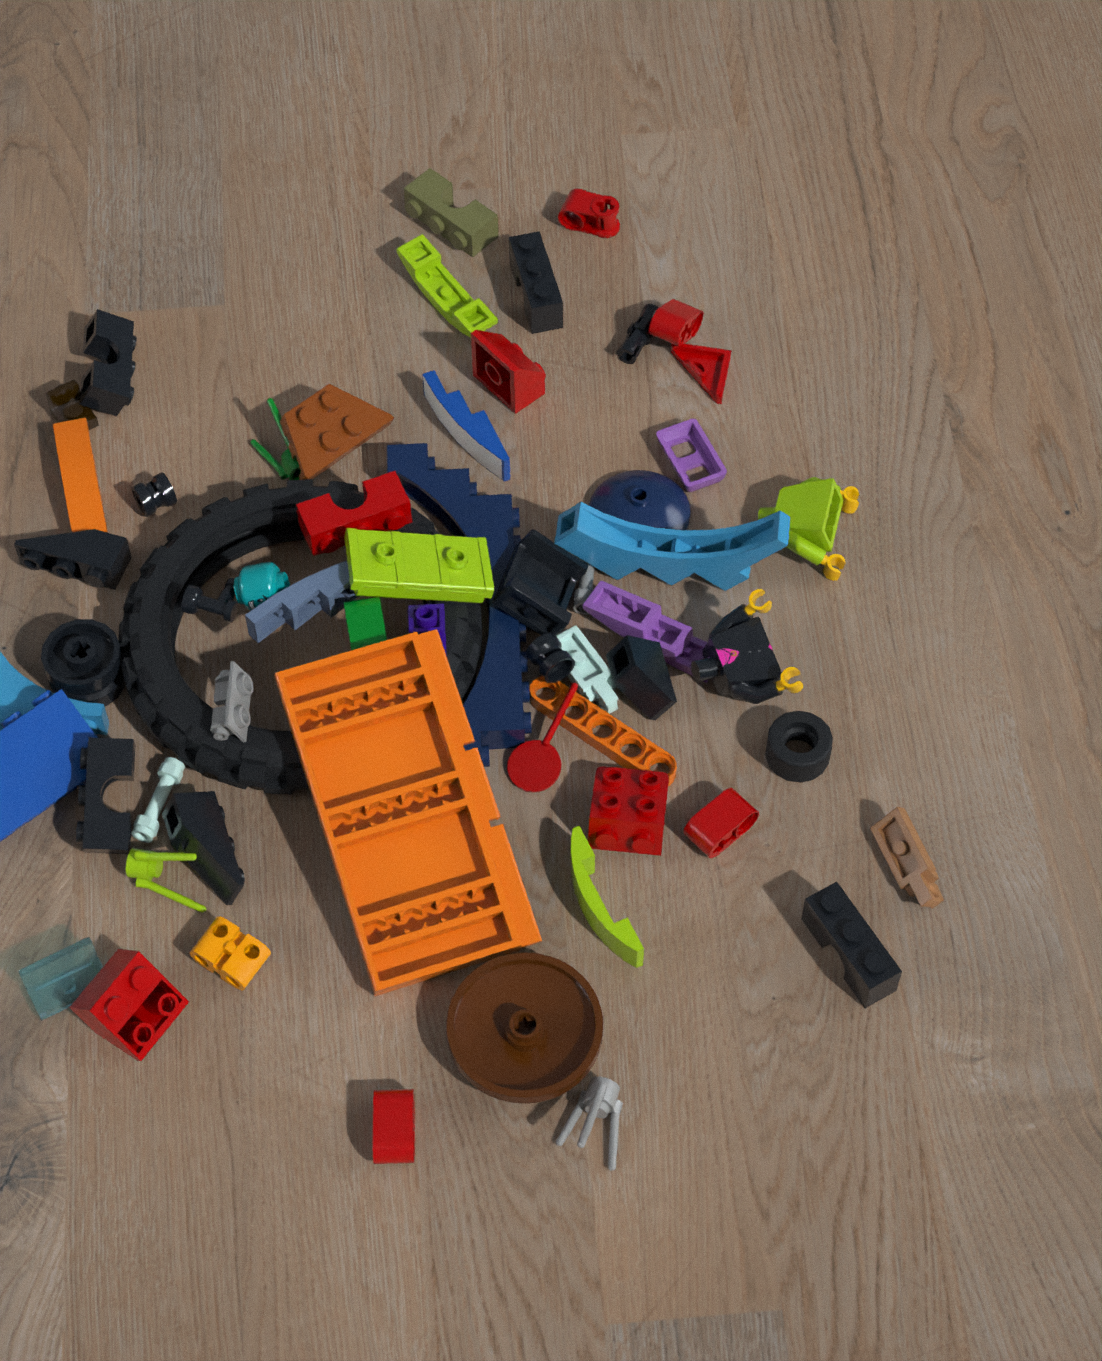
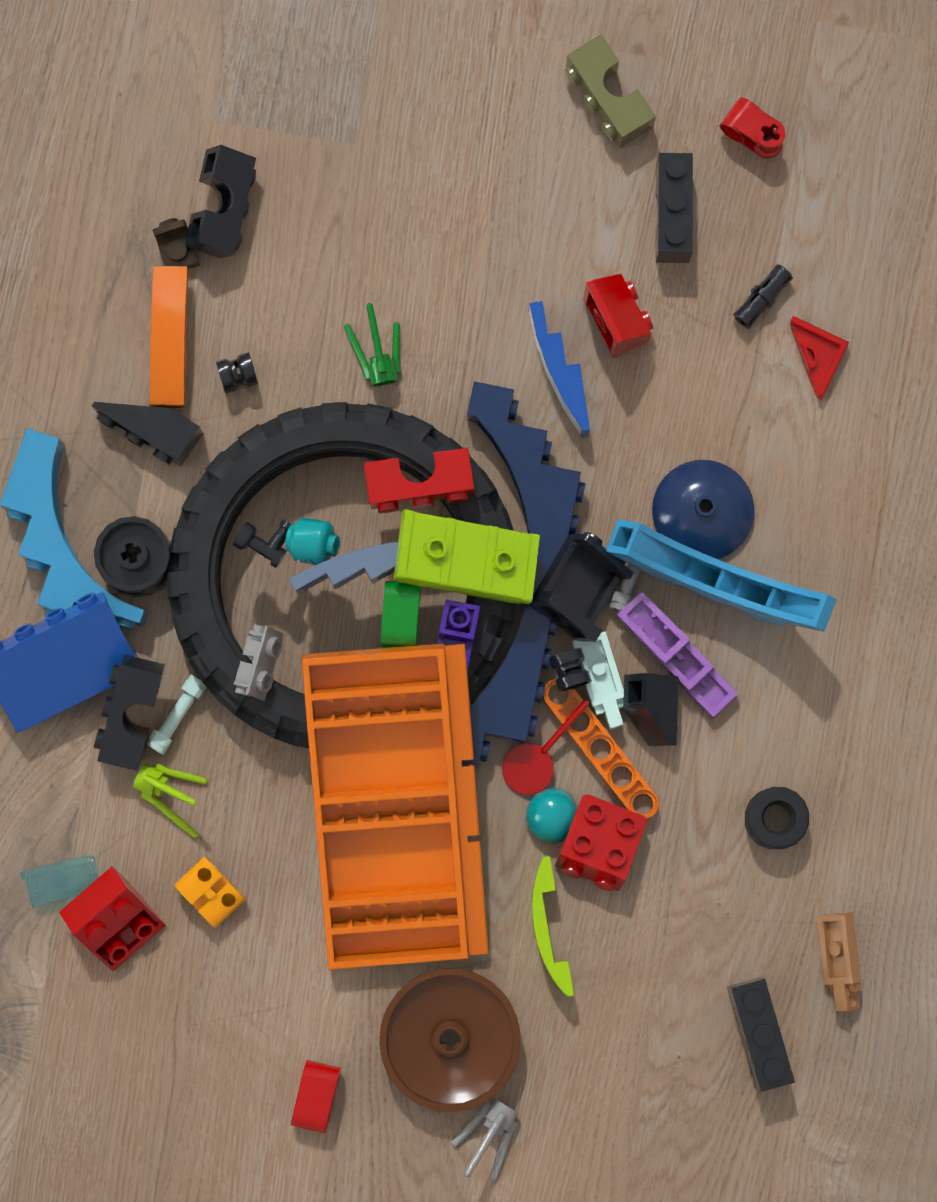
camera: 15 degrees right, 25 degrees up
(198, 827) = (207, 770): black slope -> none
(330, 428) = (422, 345): dark orange wing -> none
(442, 289) = (580, 191): lime slope -> none
(569, 799) = (551, 814): none -> teal hair
(676, 322) = (802, 298): red beam -> none
(704, 454) = (783, 460): medium lavender piece -> none
(721, 822) = (681, 878): red beam -> none
(742, 659) = (751, 716): black torso -> none
(814, 518) = (863, 570): lime torso -> none

